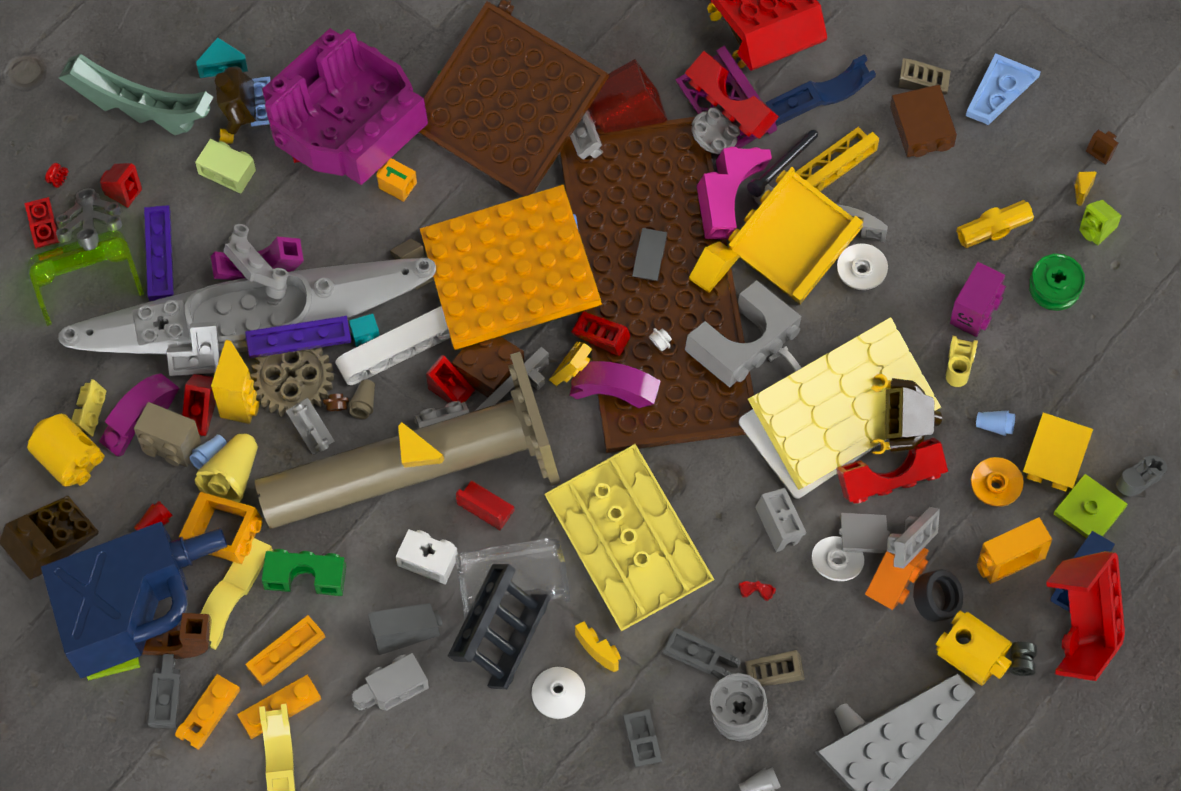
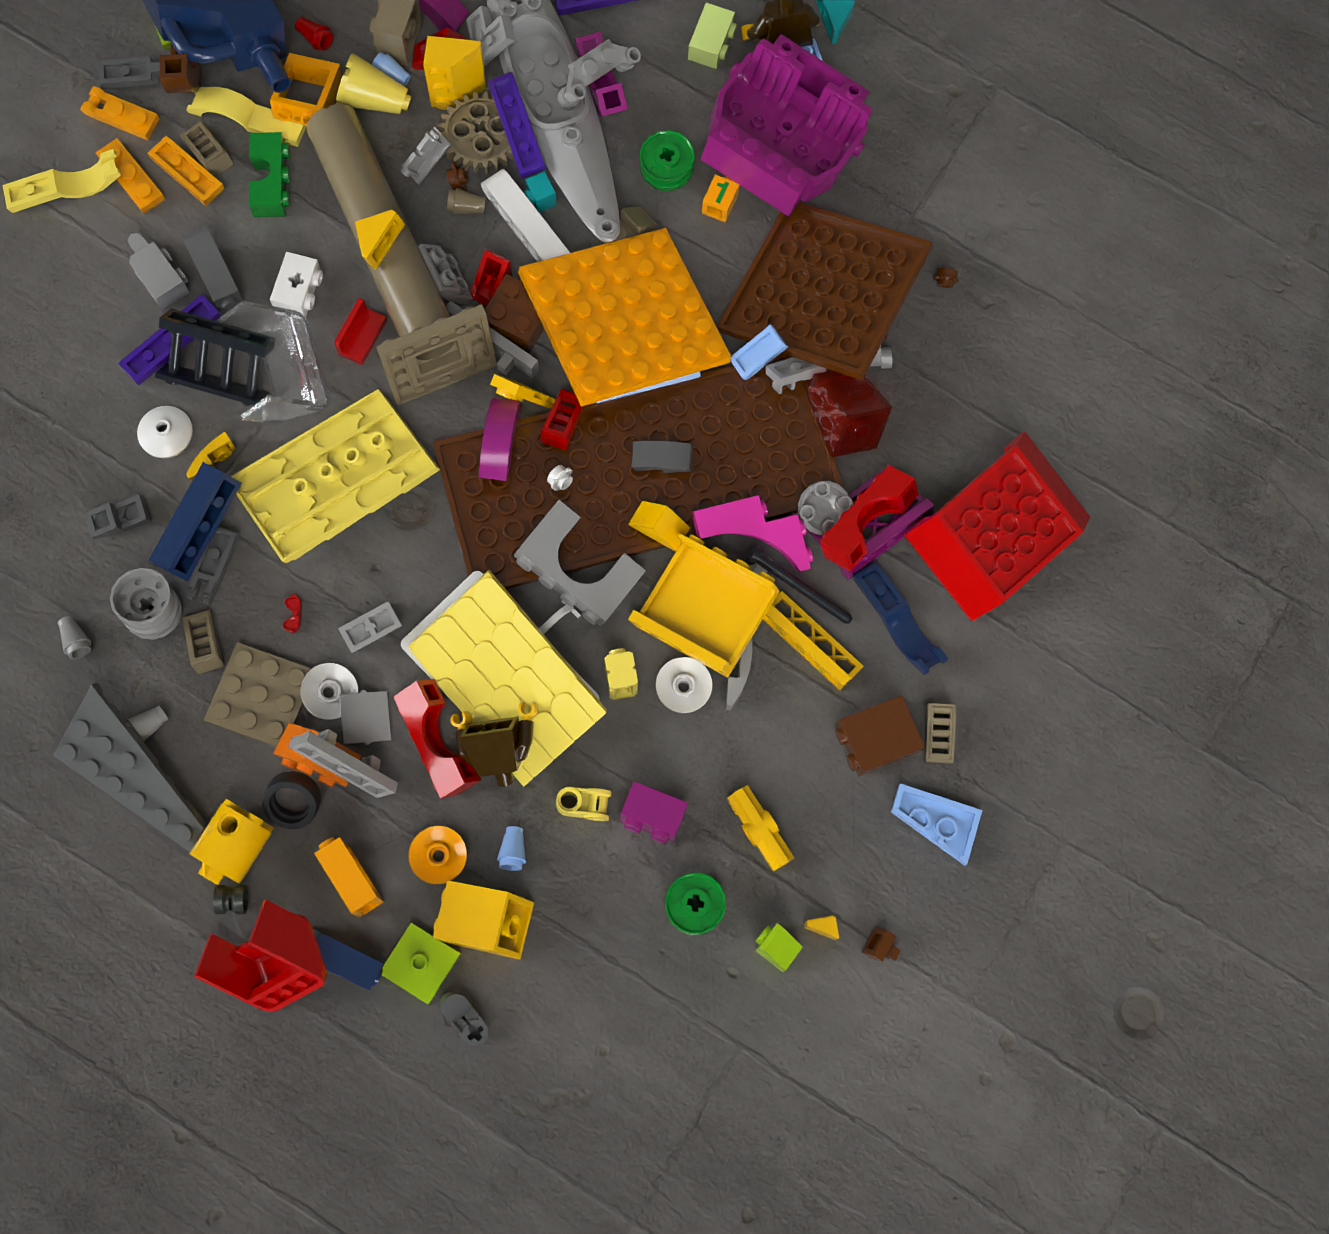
camera: 75 degrees right, 10 degrees up
(266, 618) = (216, 161): none -> dark tan slope
(350, 206) = (667, 146): none -> green wheel
(466, 680) = (156, 349): none -> dark purple plate
(563, 161) = (758, 352): none -> light blue tile
(662, 657) = (195, 521): none -> dark blue brick
(833, 623) = (257, 695): none -> dark tan plate
(850, 311) = (621, 674): none -> light yellow brick

